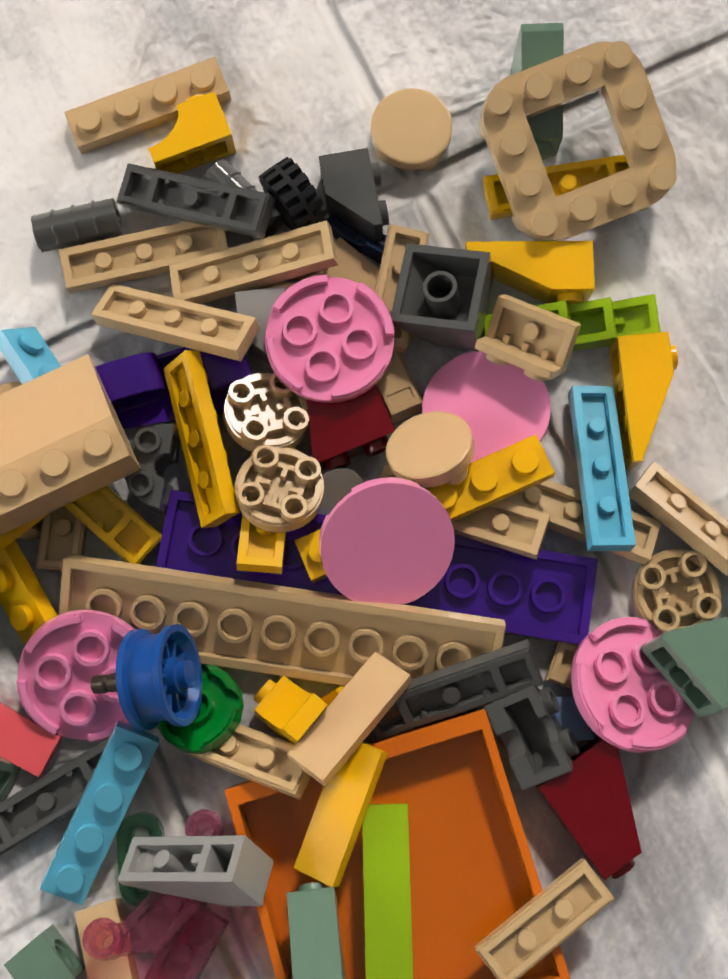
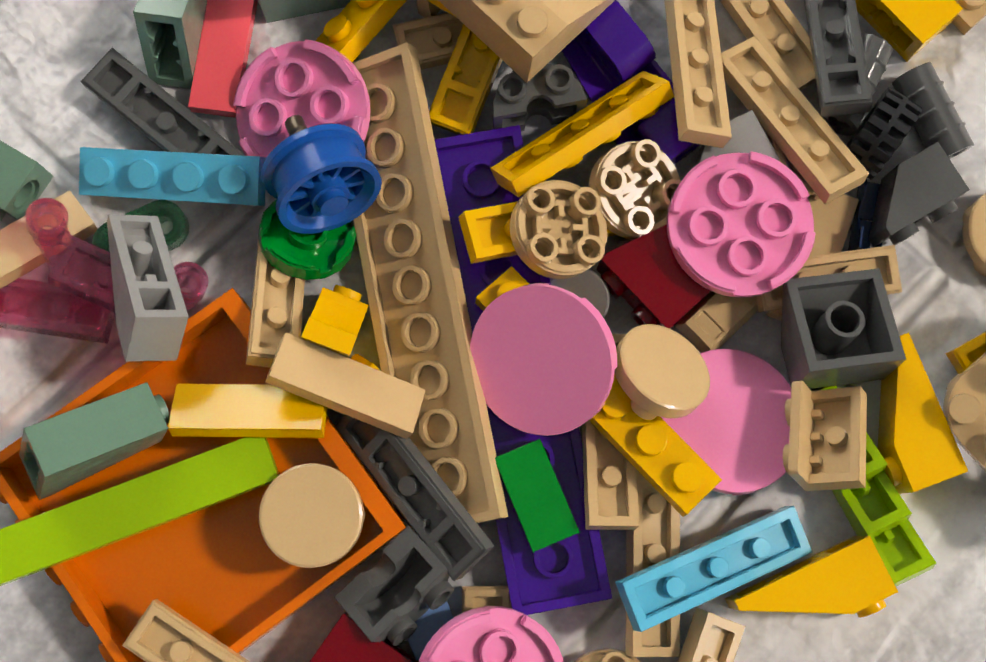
camera: 65 degrees right, 0 degrees up
(301, 146) = (938, 116): none -> dark grey axle
(449, 786) = (311, 515): none -> tan tile
(494, 590) = (536, 495): none -> green tile

